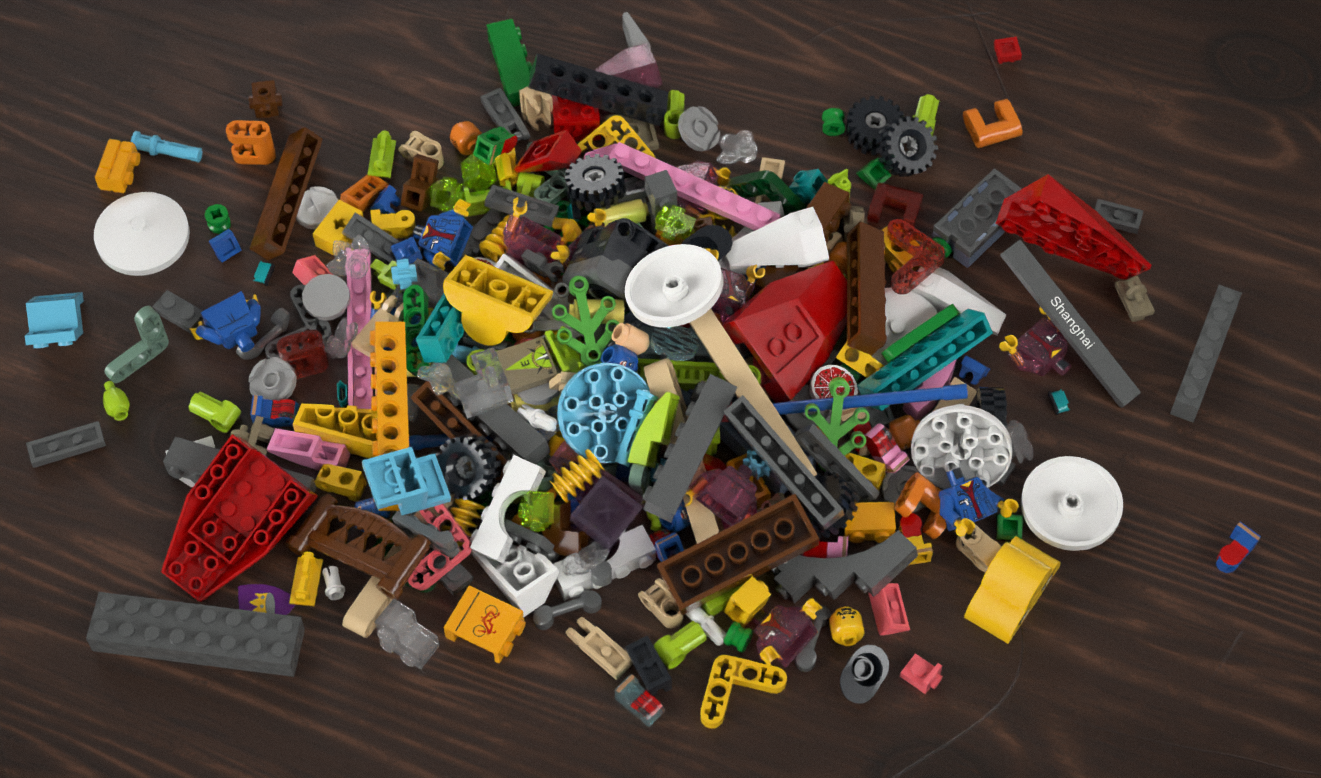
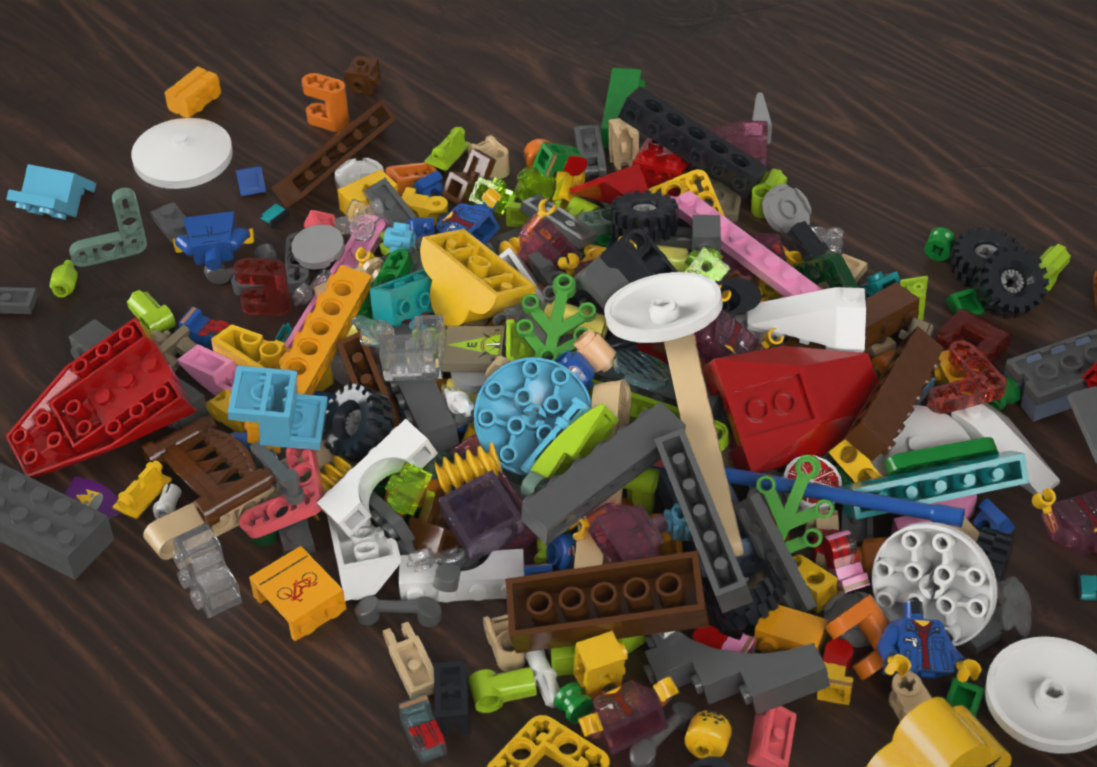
camera: 25 degrees right, 15 degrees down
(156, 146) = (240, 87): medium azure pin -> none
(219, 224) = (258, 155): green wheel -> none
(272, 379) = (224, 302): light grey tile -> none
(734, 160) = (806, 241): none -> black piece

